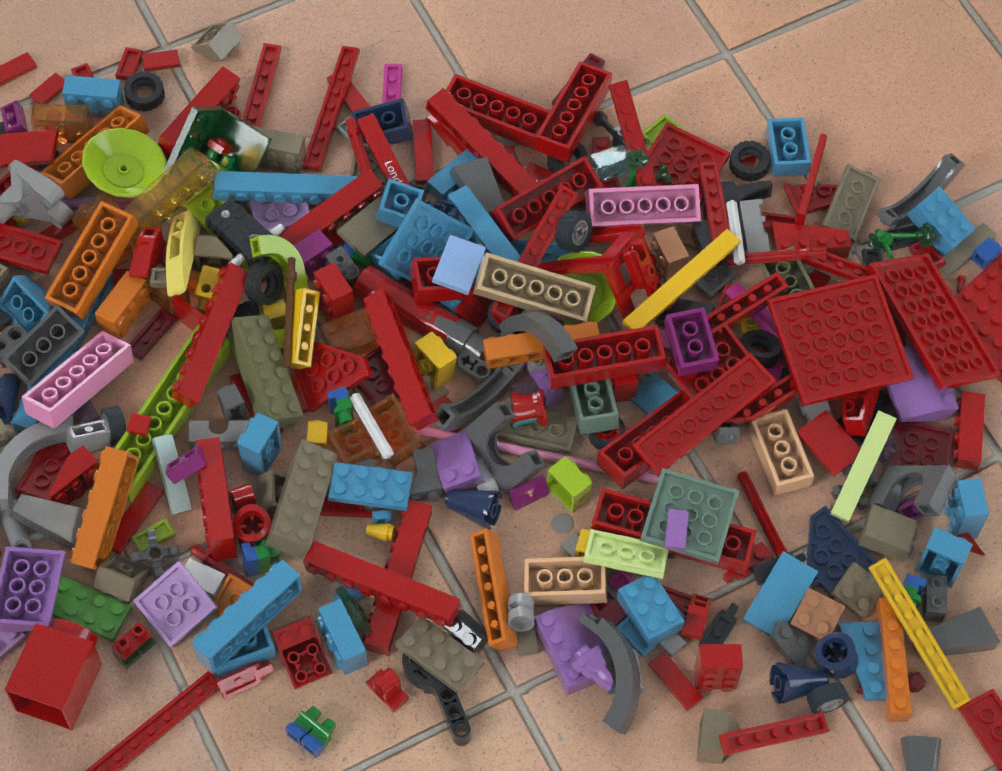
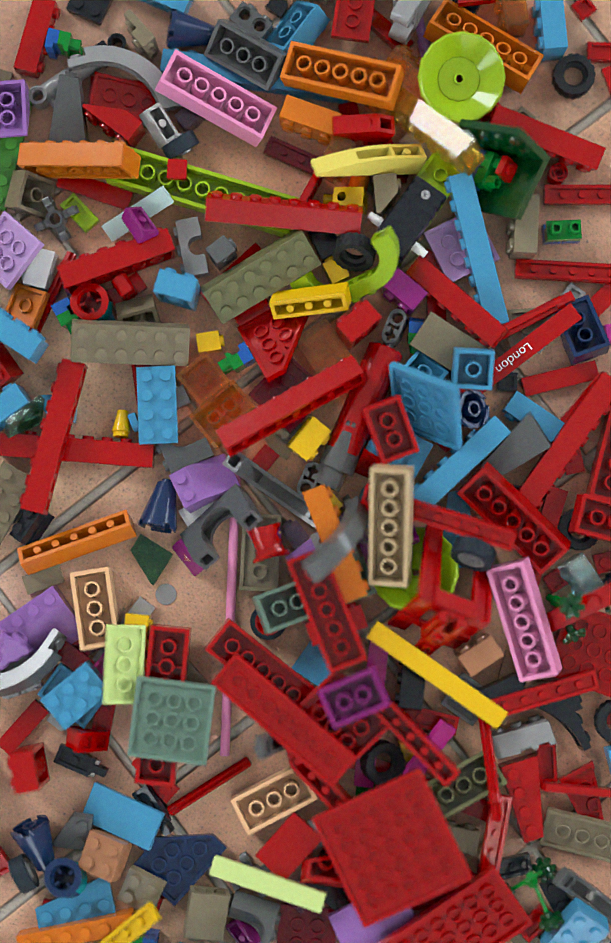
camera: 85 degrees right, 25 degrees up
(158, 278) = (337, 145): dark tan tile -> none
(288, 117) = (561, 232): none -> green hips
(290, 277) = (358, 277): reddish brown bar -> none
(342, 261) = (392, 324): dark grey brick -> none
(371, 426) = (218, 392): white axle -> none
(458, 264) = (402, 443): light blue tile -> none
(521, 612) = (54, 572): light grey wheel -> none
(522, 528) = (151, 557): none -> clear green wing
(569, 484) = (197, 595): lime piece -> none
(676, 529) = (149, 710): medium lavender tile -> none
(734, 226) = (514, 720): white axle -> none

